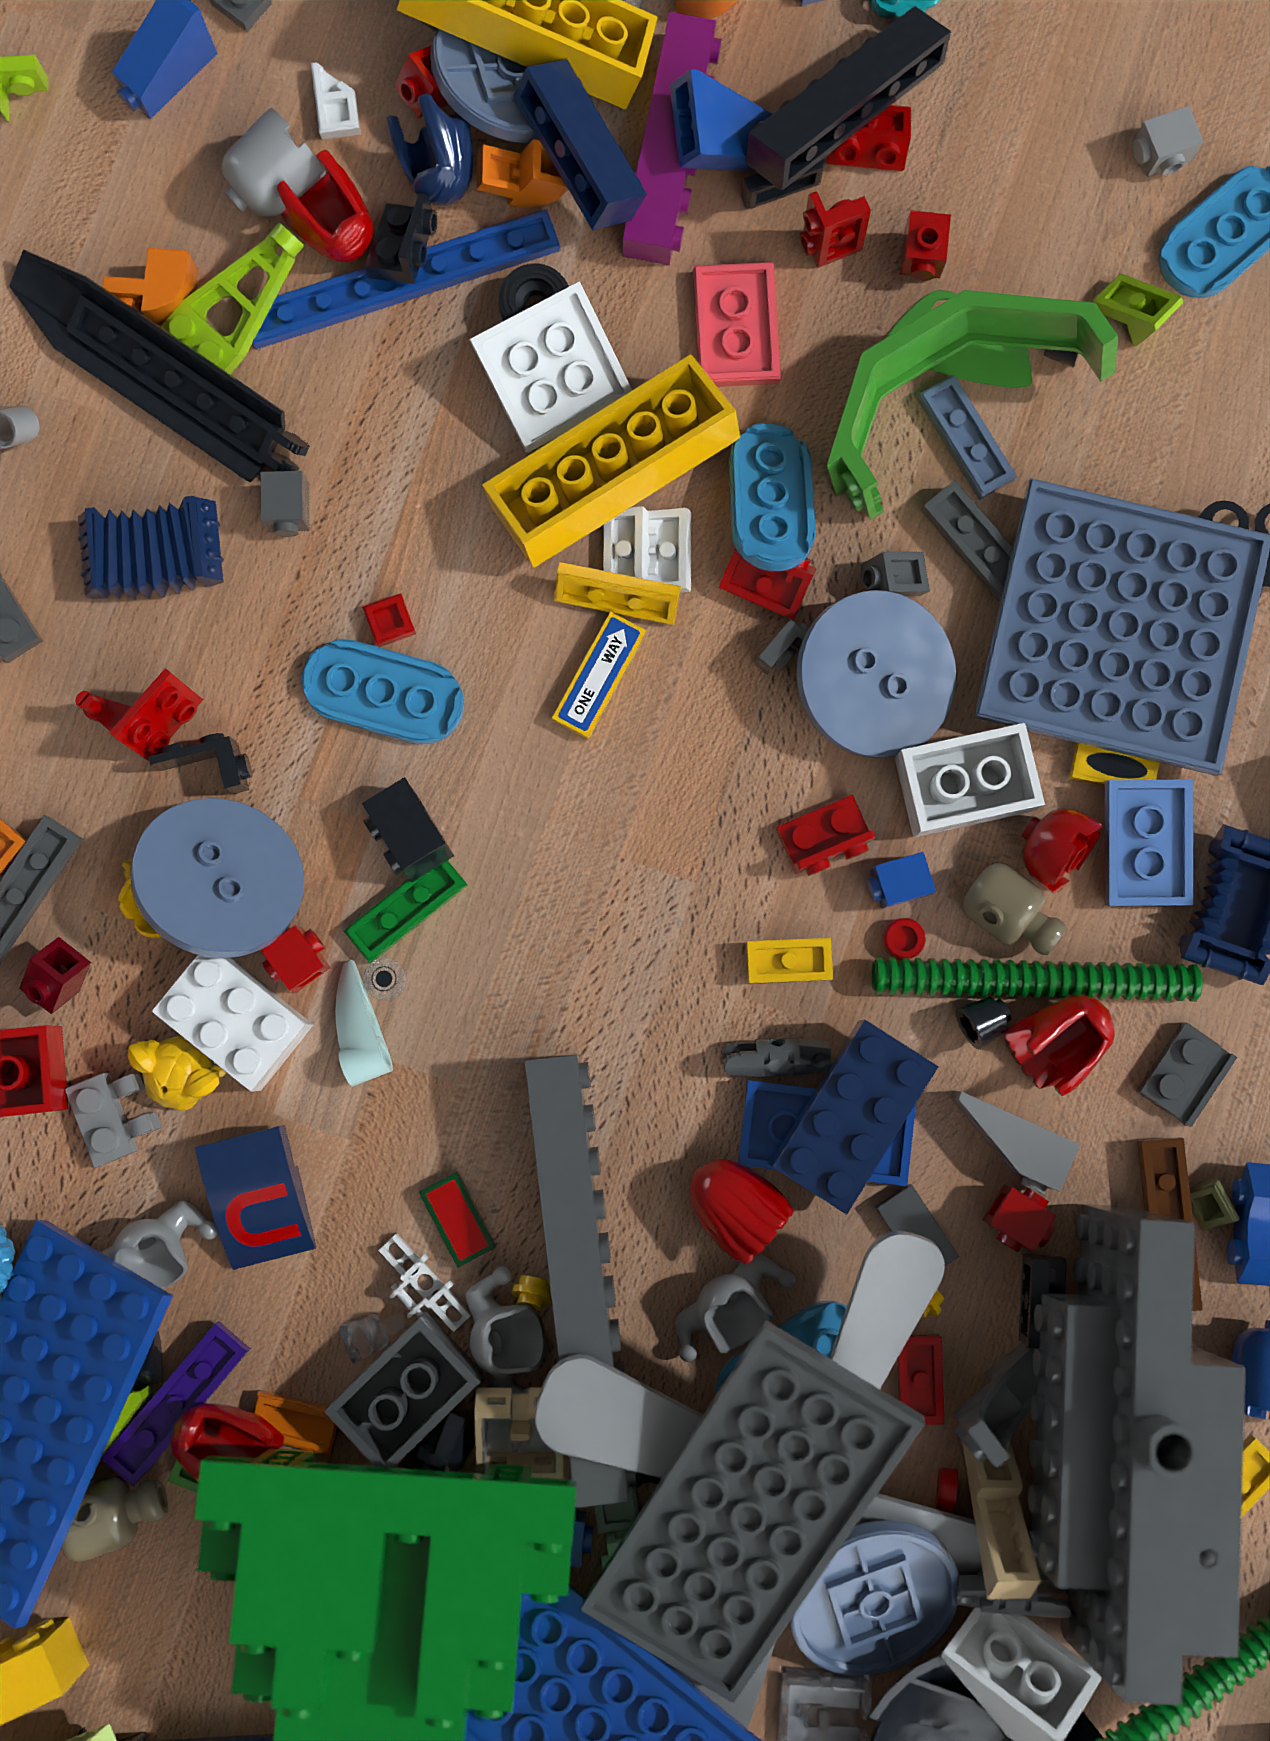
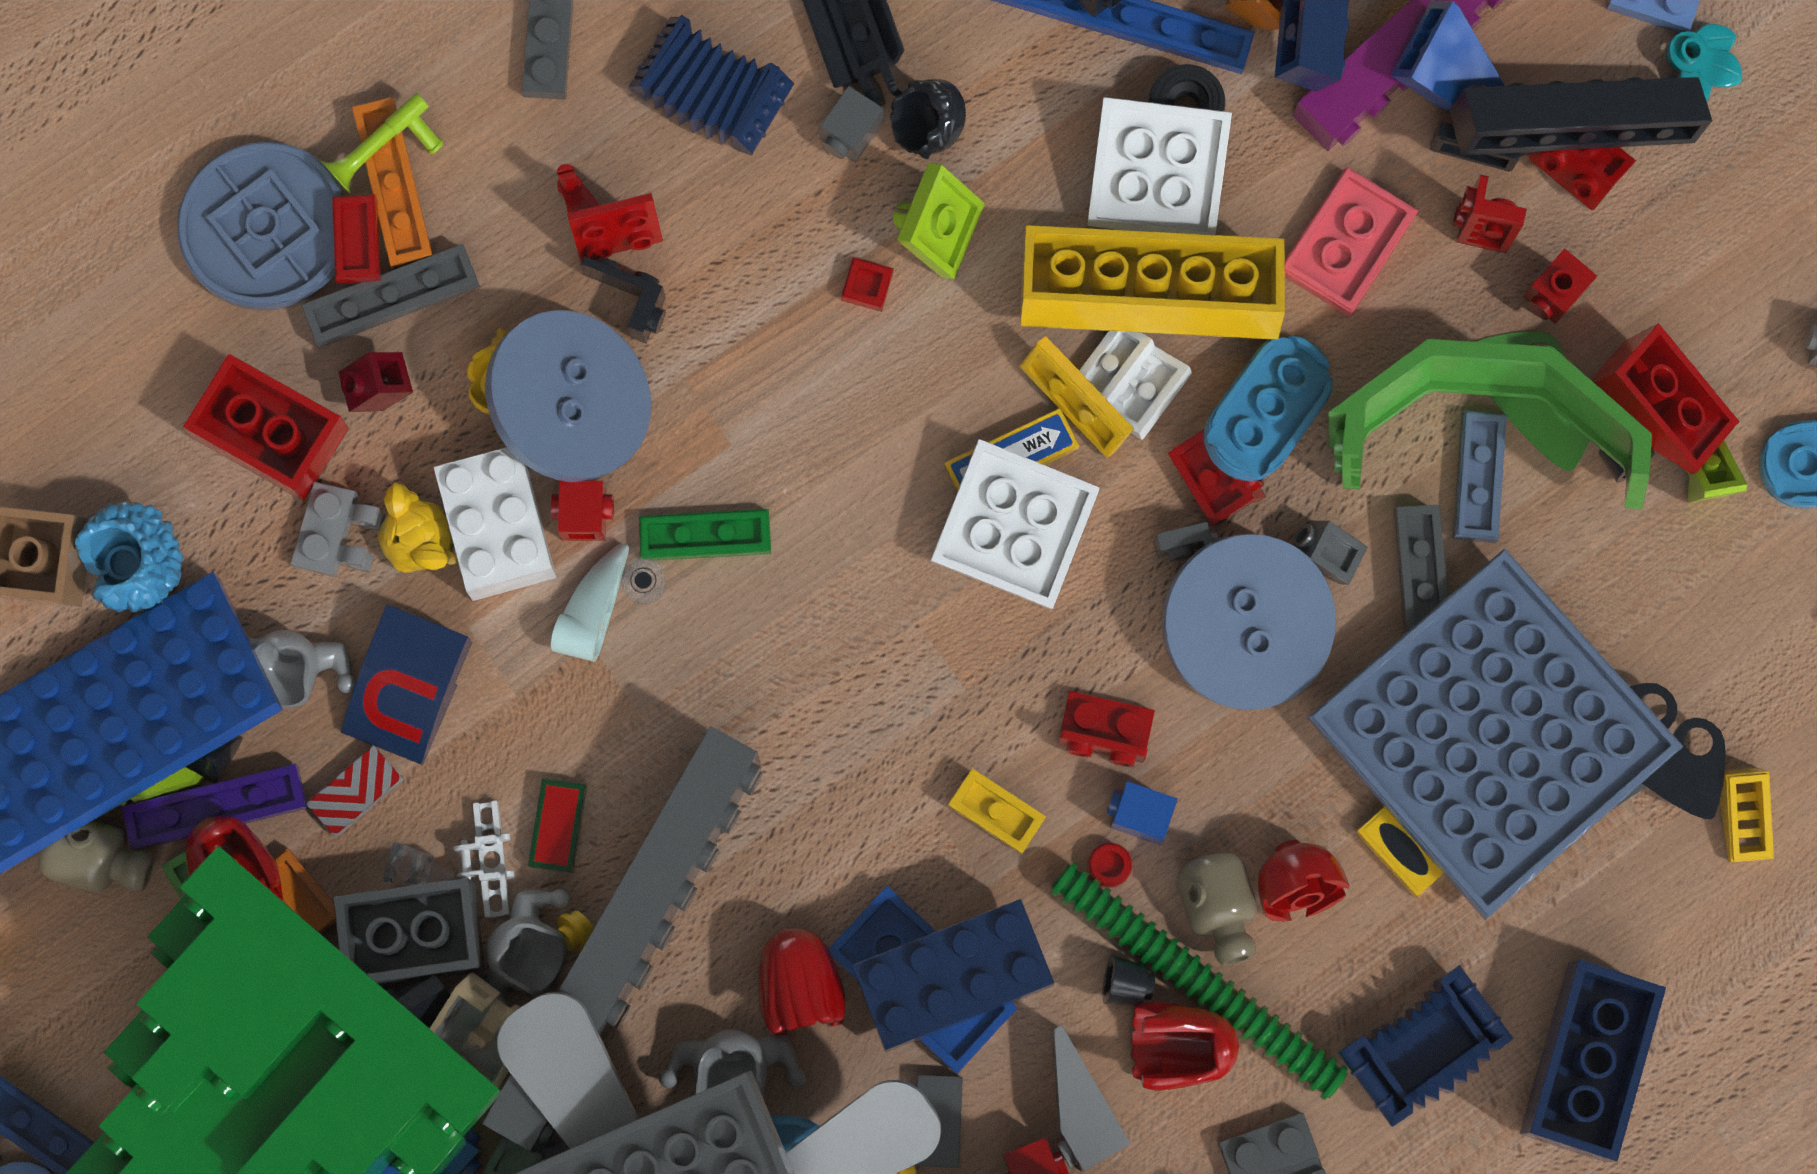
camera: 35 degrees right, 5 degrees down
(278, 1308) = (355, 791): none -> tile
(341, 453) = (928, 116): none -> black hair
(383, 691) = (818, 341): dark azure tile -> none
(407, 830) = (753, 469): black brick -> none
(410, 529) = (939, 221): none -> lime tile
(642, 727) = (1015, 524): none -> white plate
(776, 1057) = (925, 884): dark grey hinge -> none
(969, 780) = (1262, 767): white brick -> none
(1068, 267) = (1667, 397): none -> red slope
(1148, 842) = (1382, 934): medium blue plate -> none

